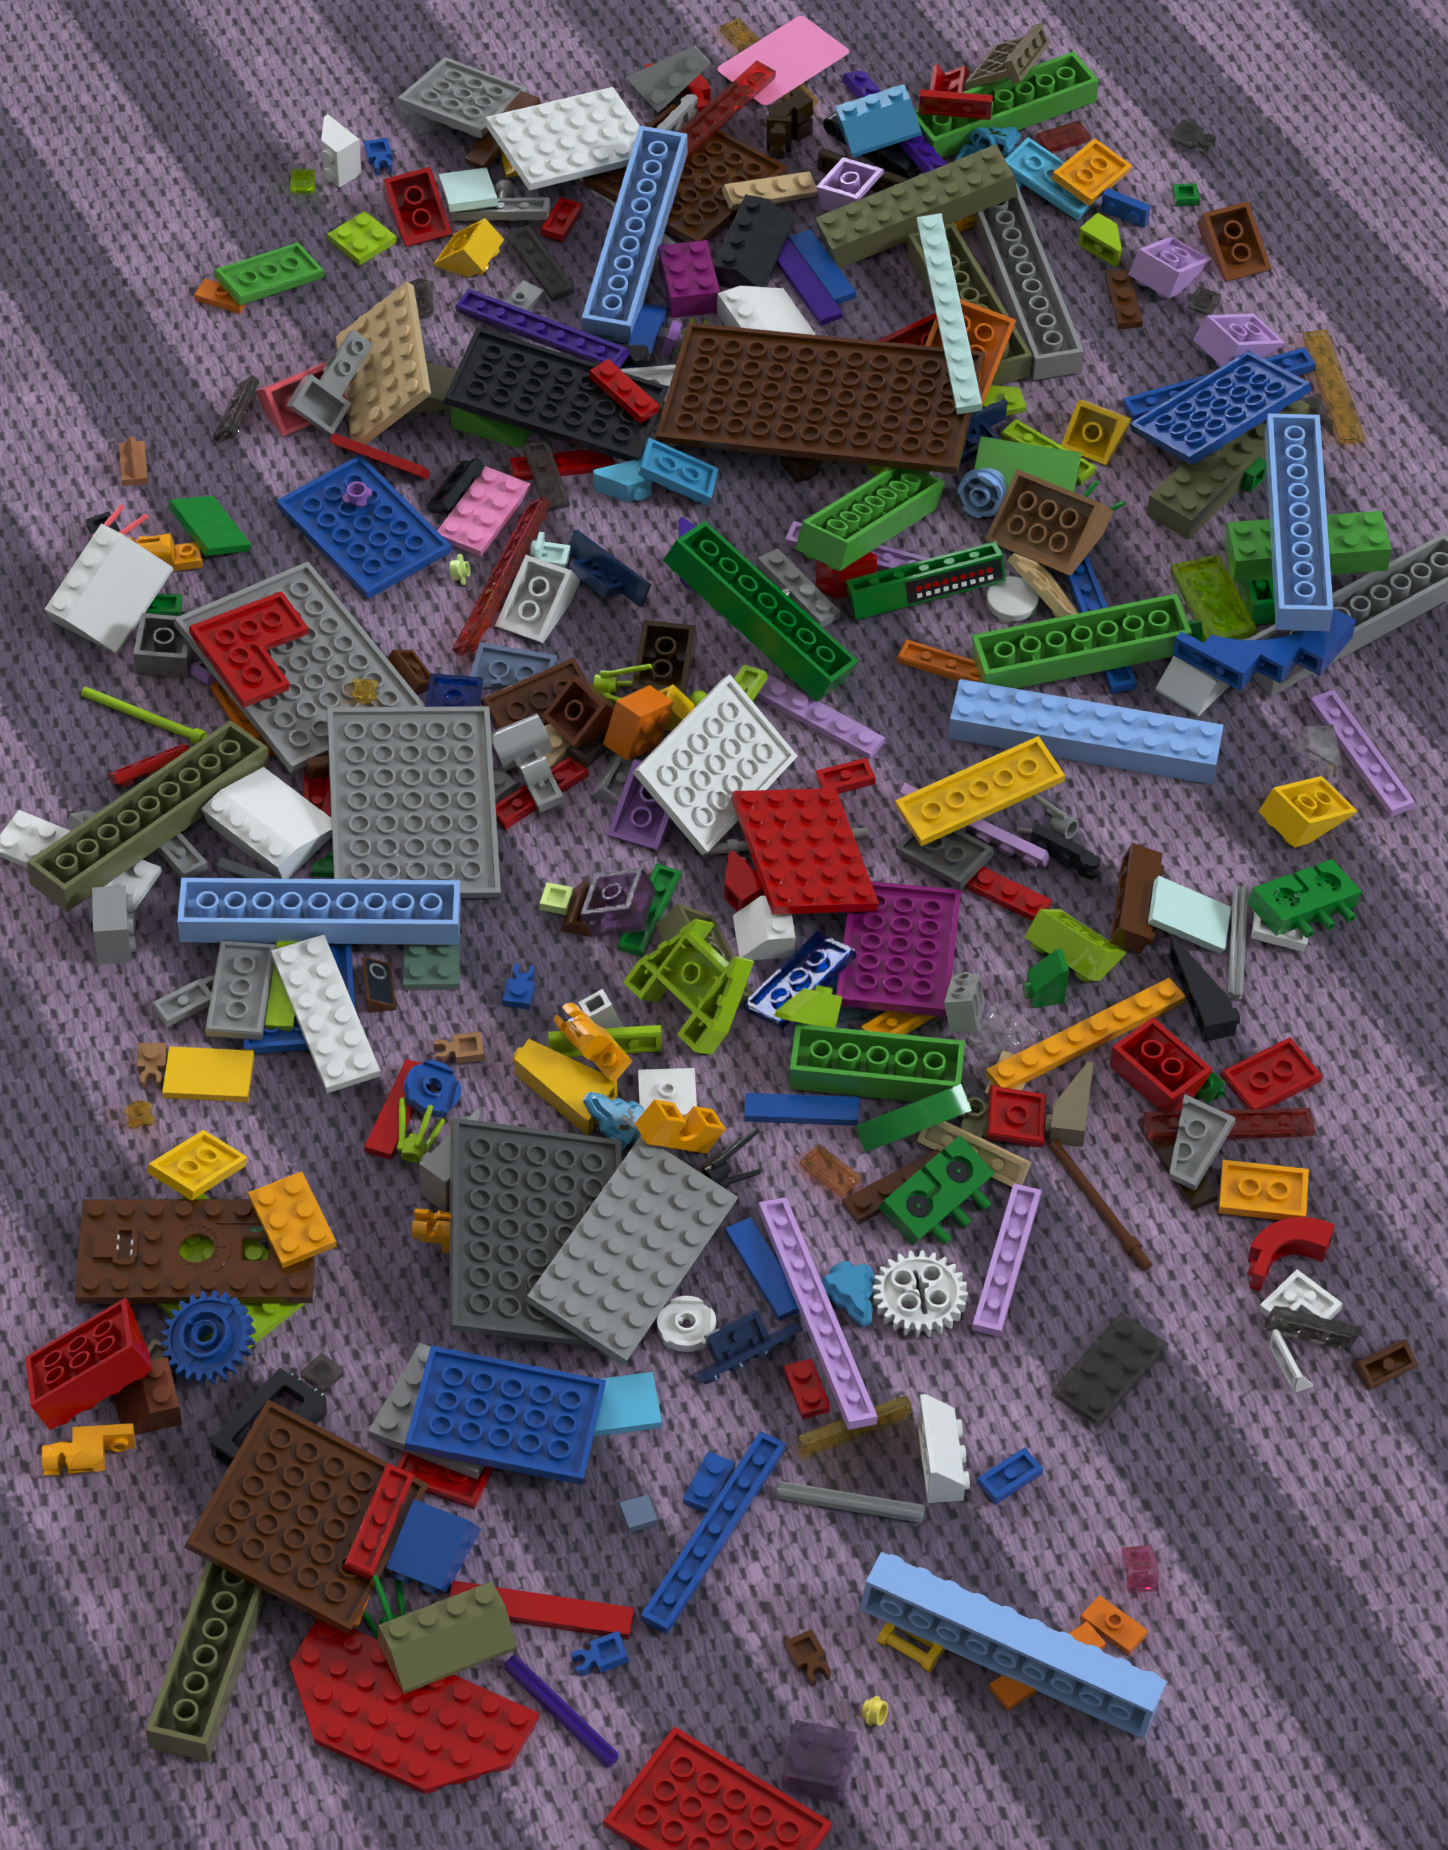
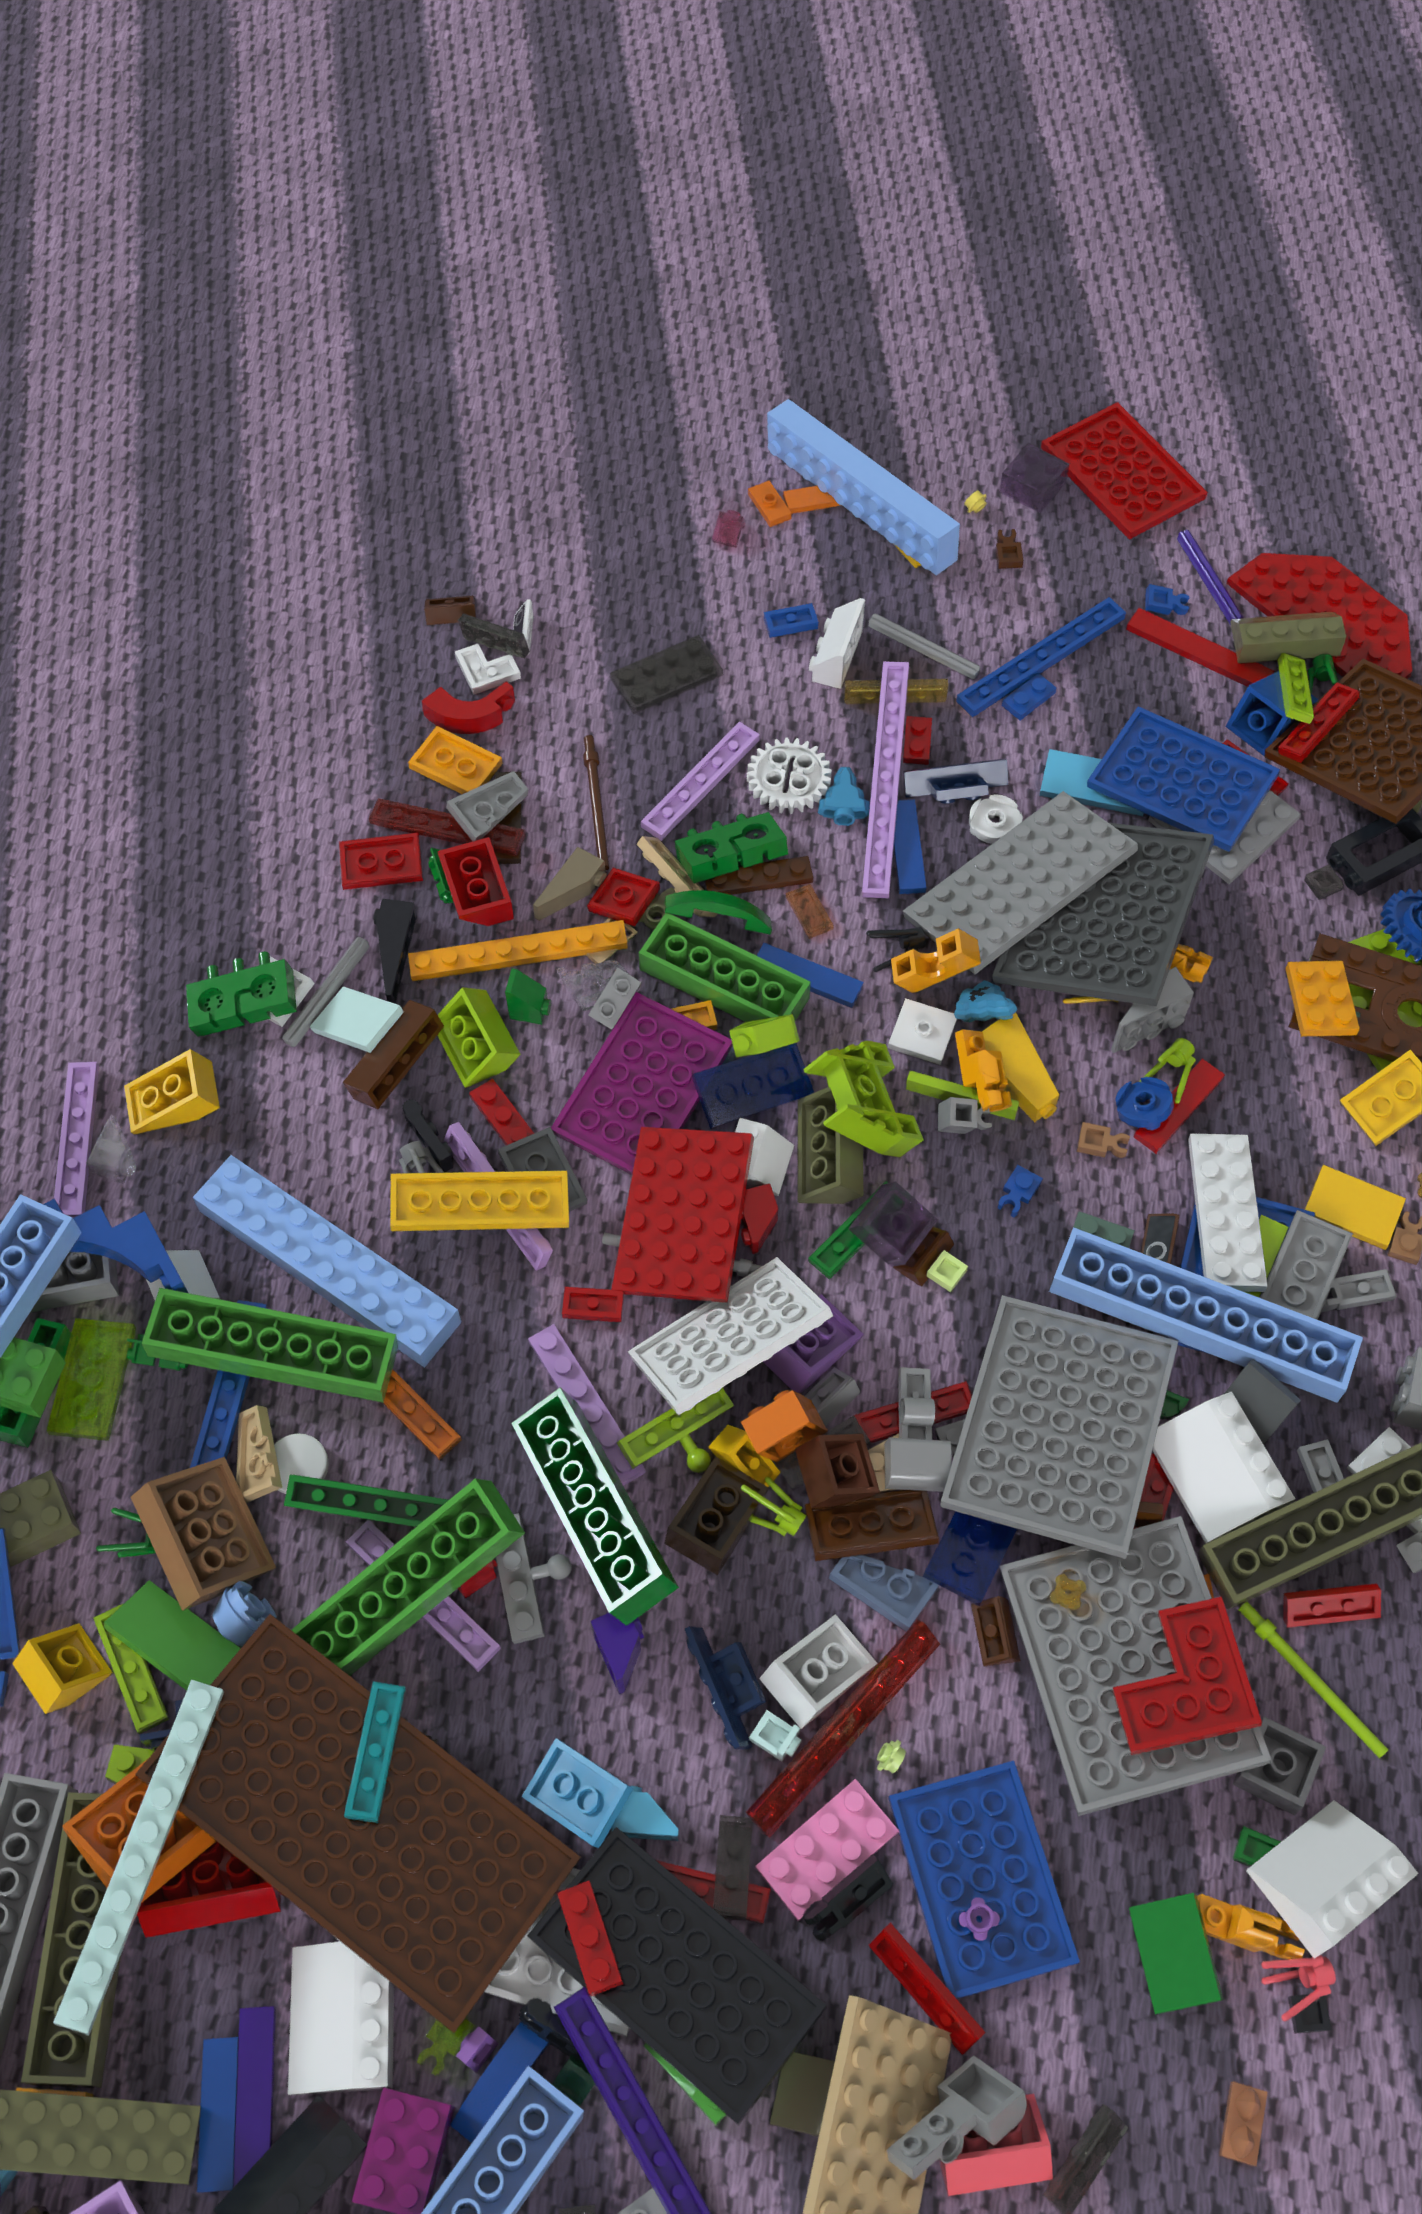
camera: 155 degrees left, 10 degrees up
(415, 1550) = (1295, 688): none -> lime tile
(638, 1513) = (1095, 692): sand blue tile -> none
(830, 426) = (375, 1752): none -> teal tile

